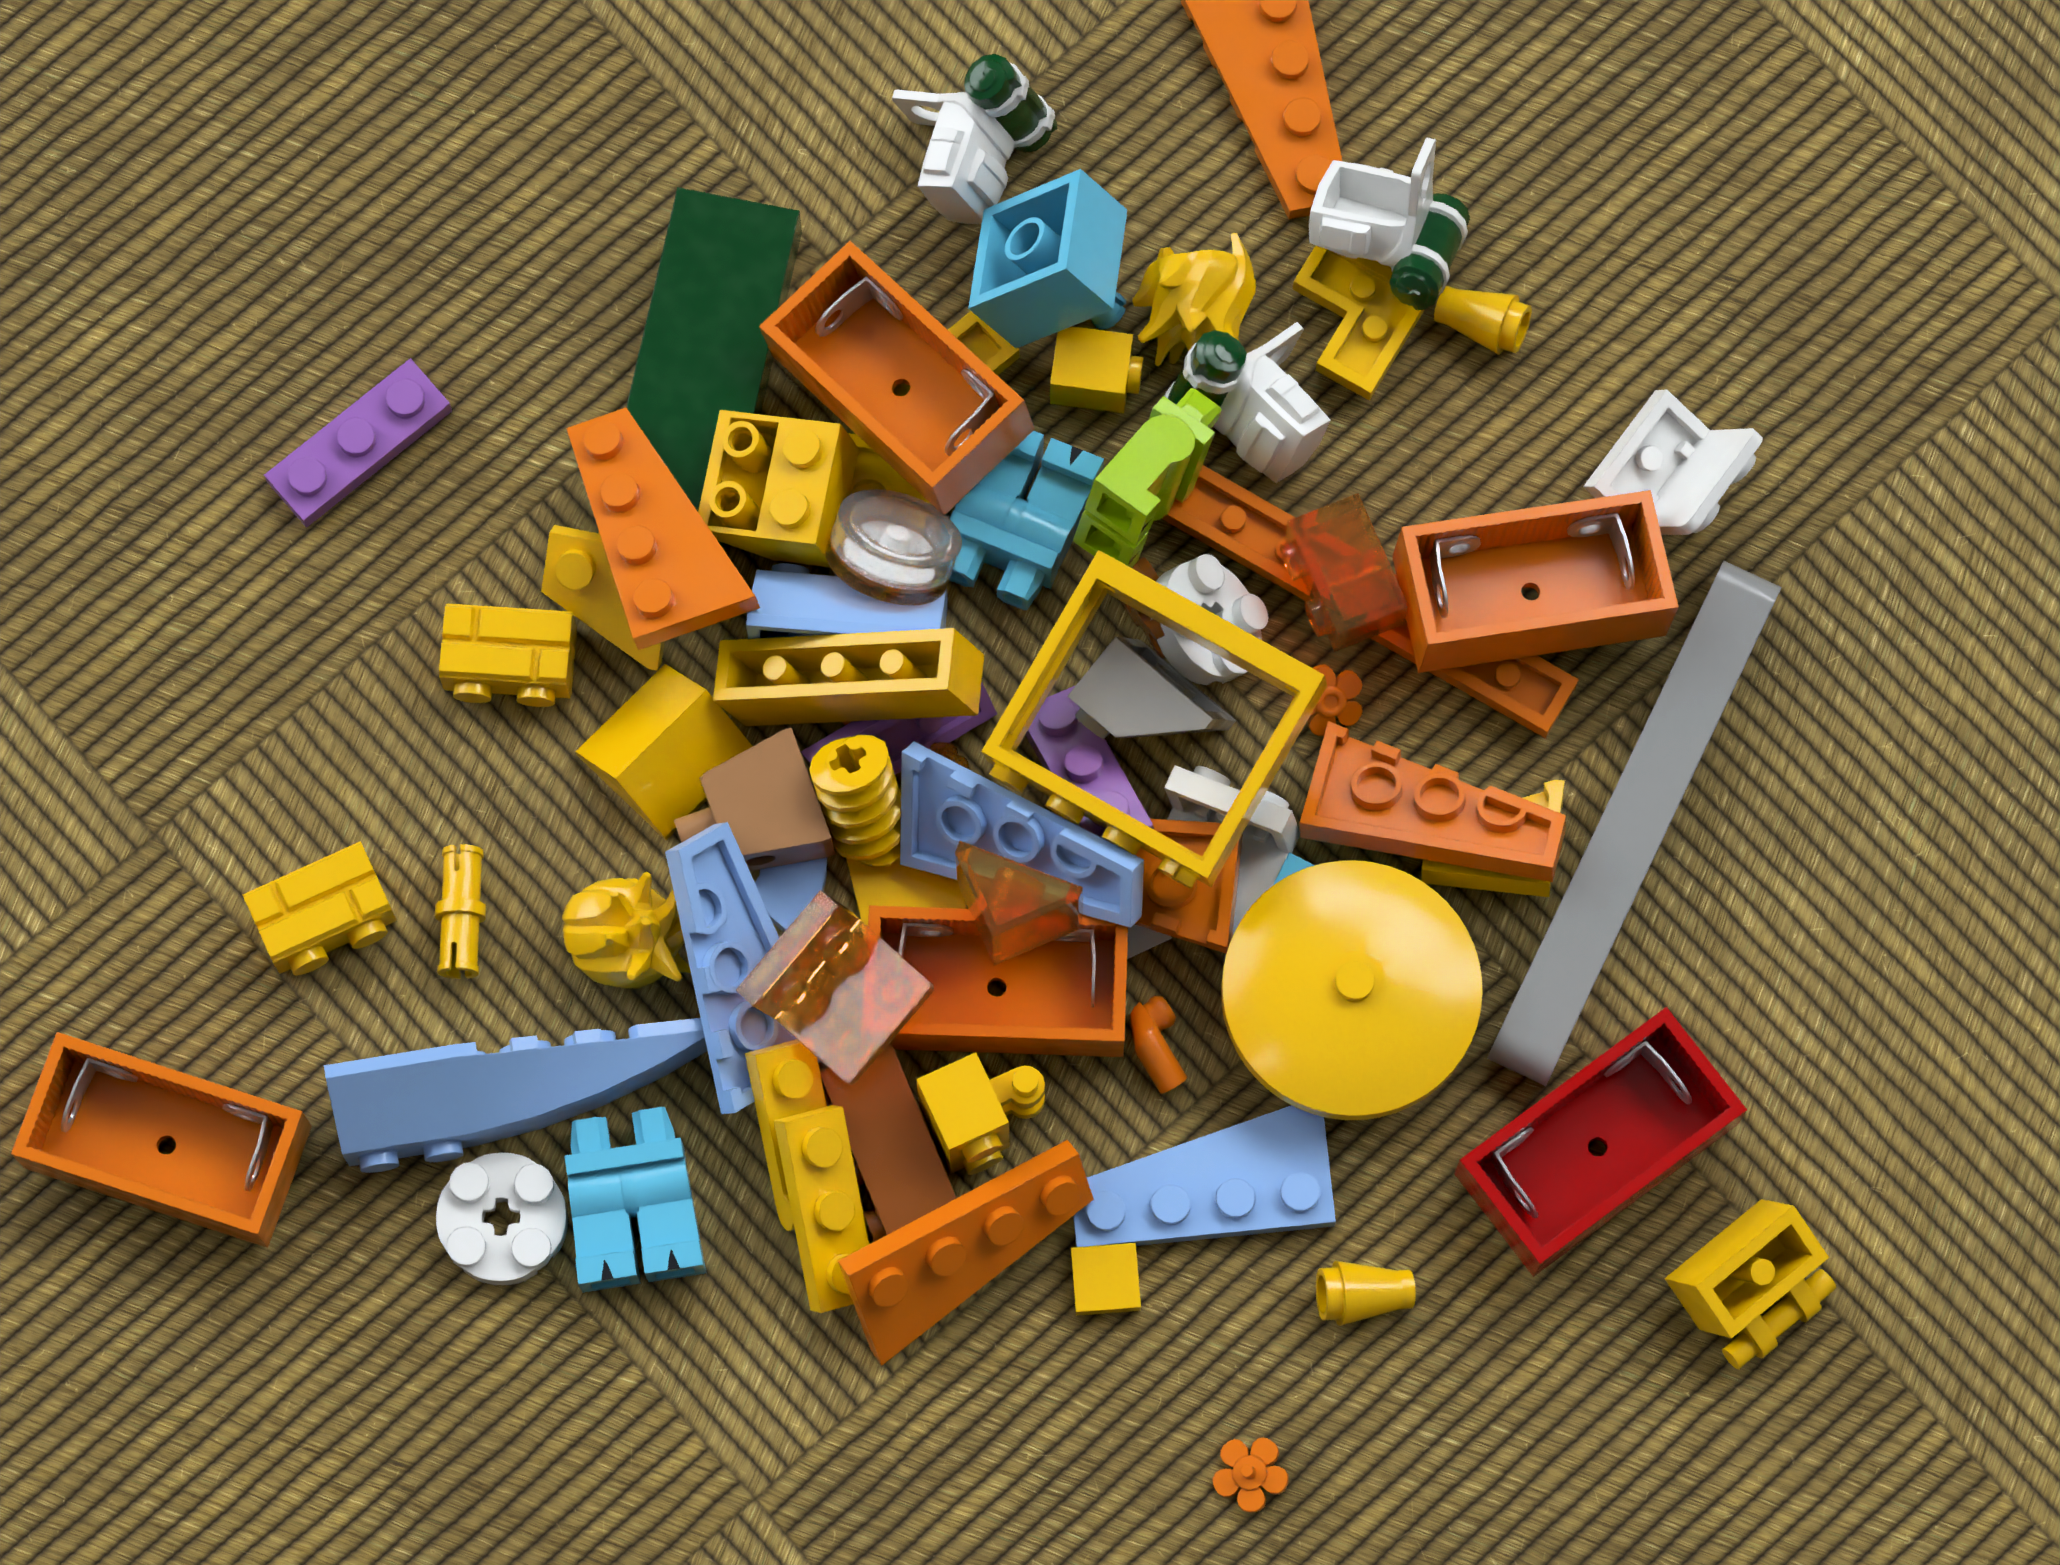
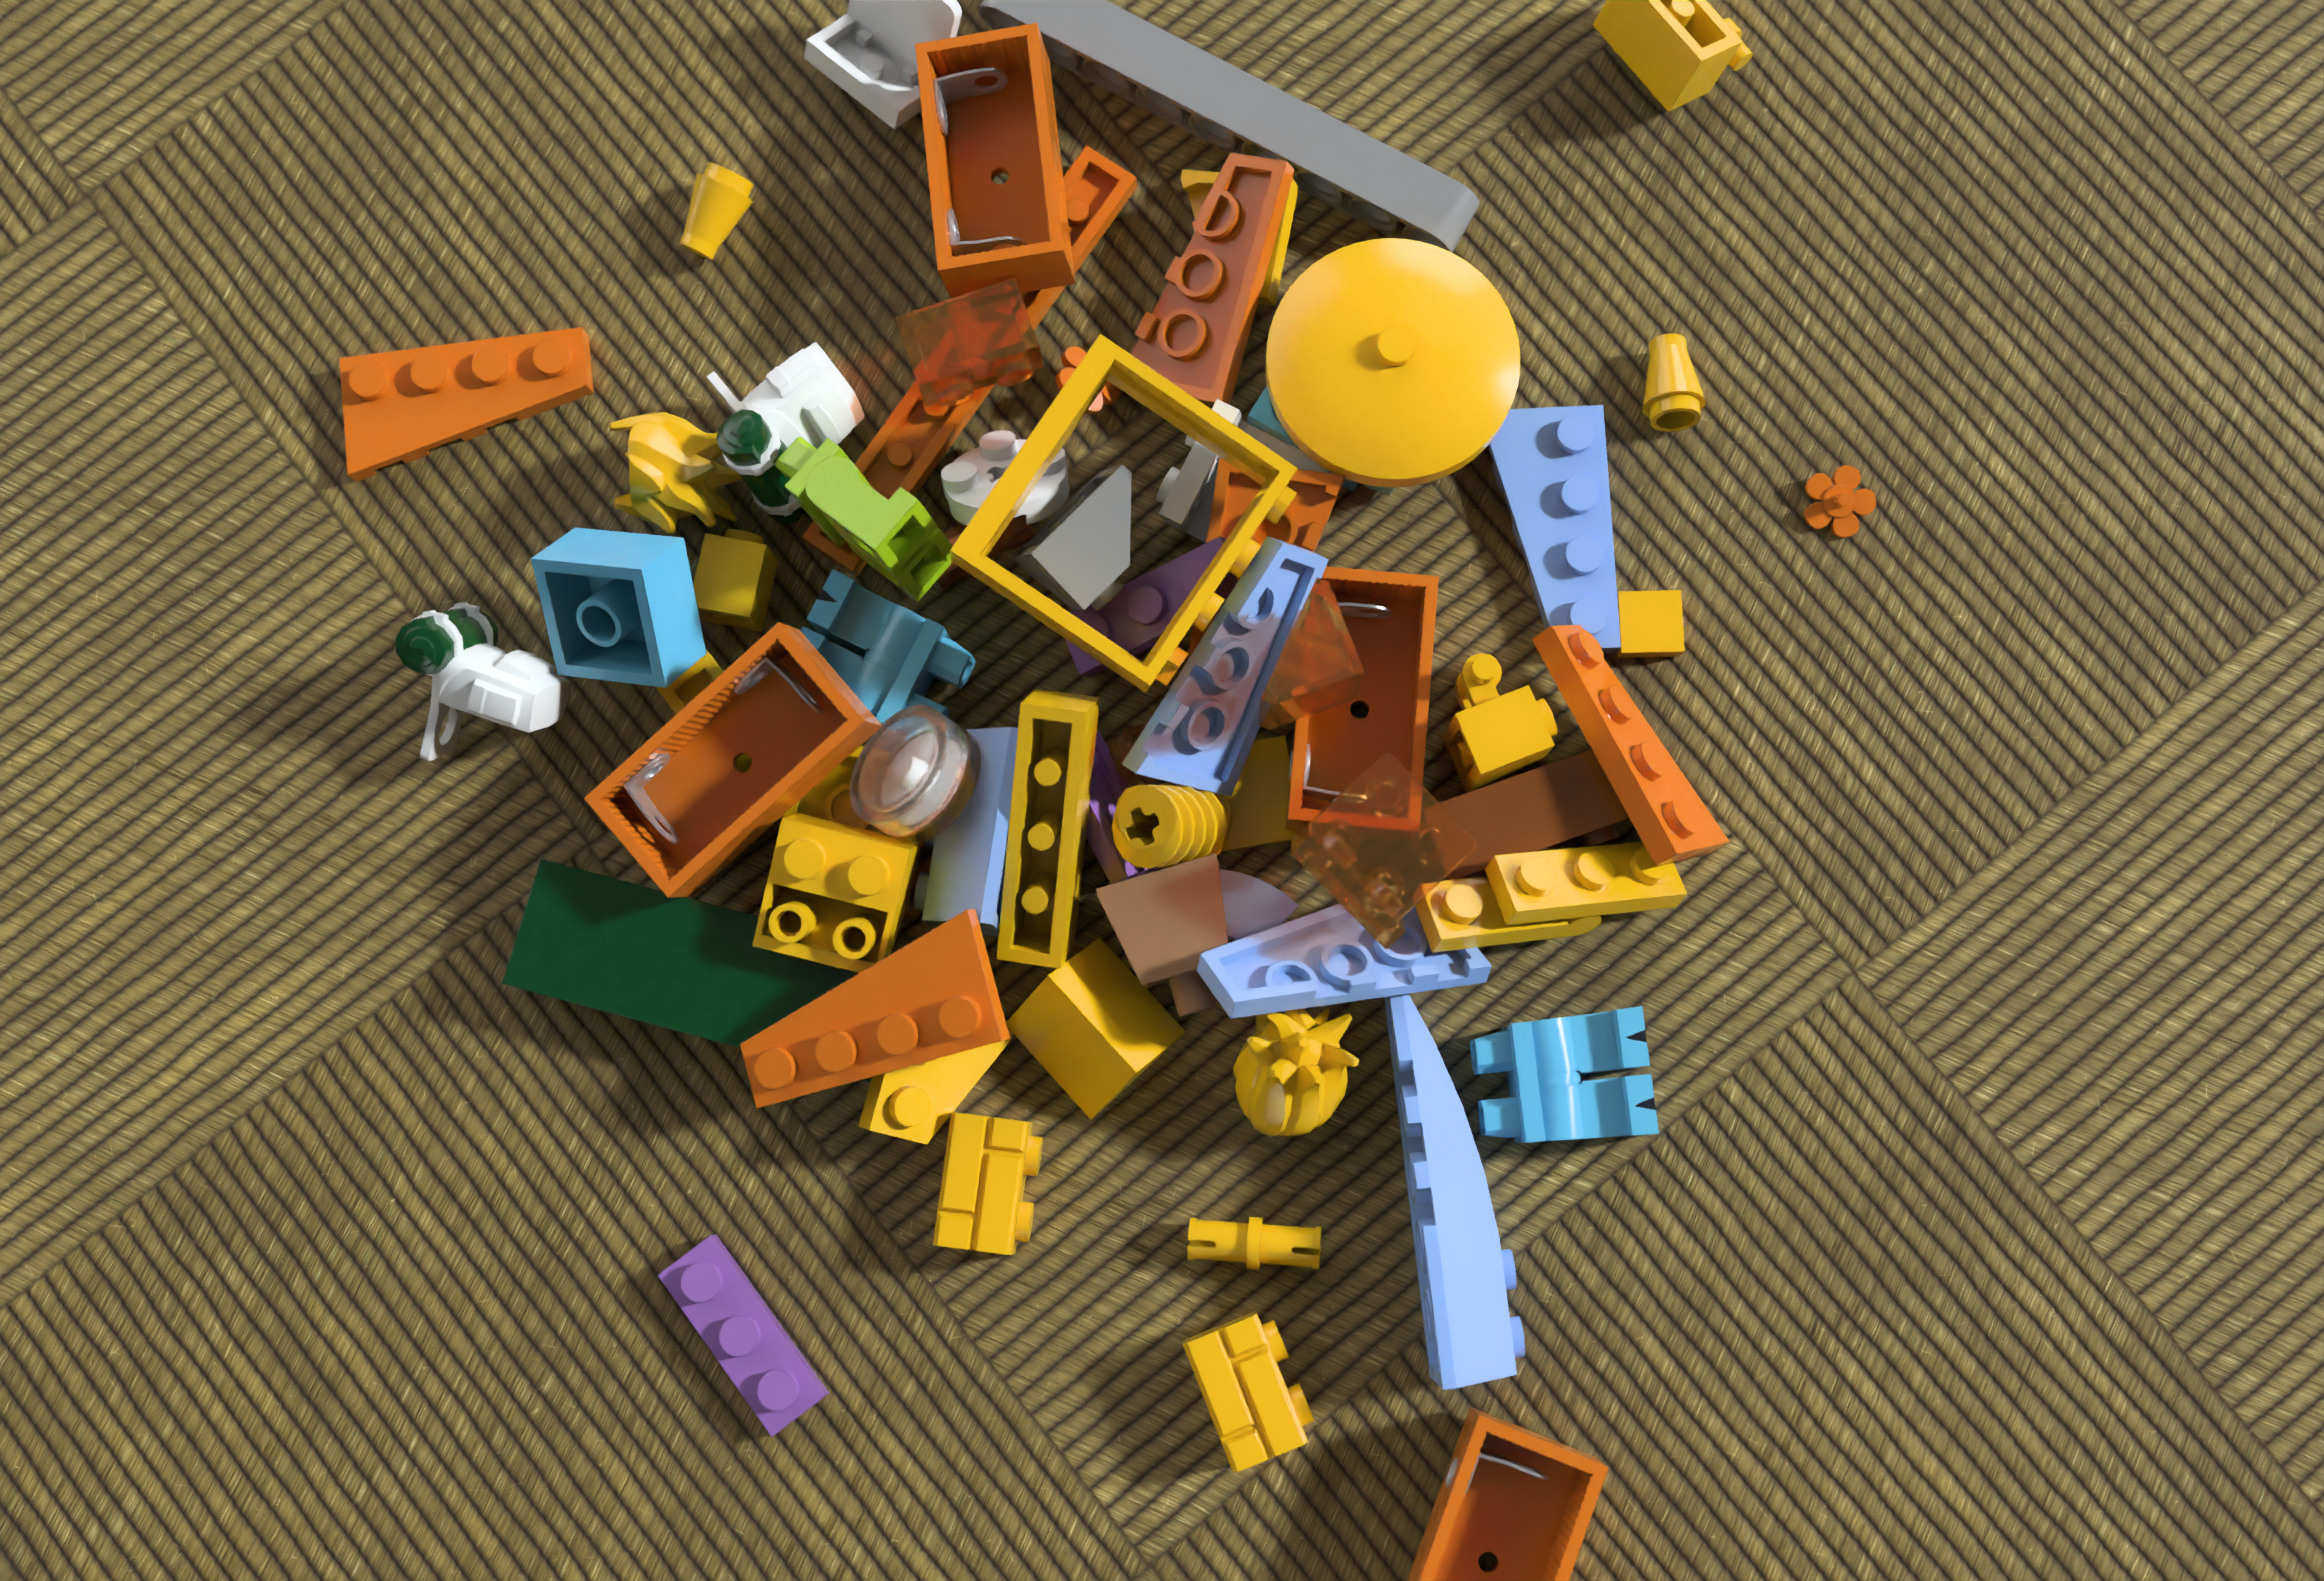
camera: 80 degrees left, 5 degrees up
(528, 1244) = (1601, 1188): white plate -> none
(1151, 1047) = (1431, 561): orange arm -> none
(1372, 322) = (692, 309): yellow plate -> none
(1393, 222) = (612, 275): white piece -> none
(1649, 1104) = (1522, 102): red piece -> none

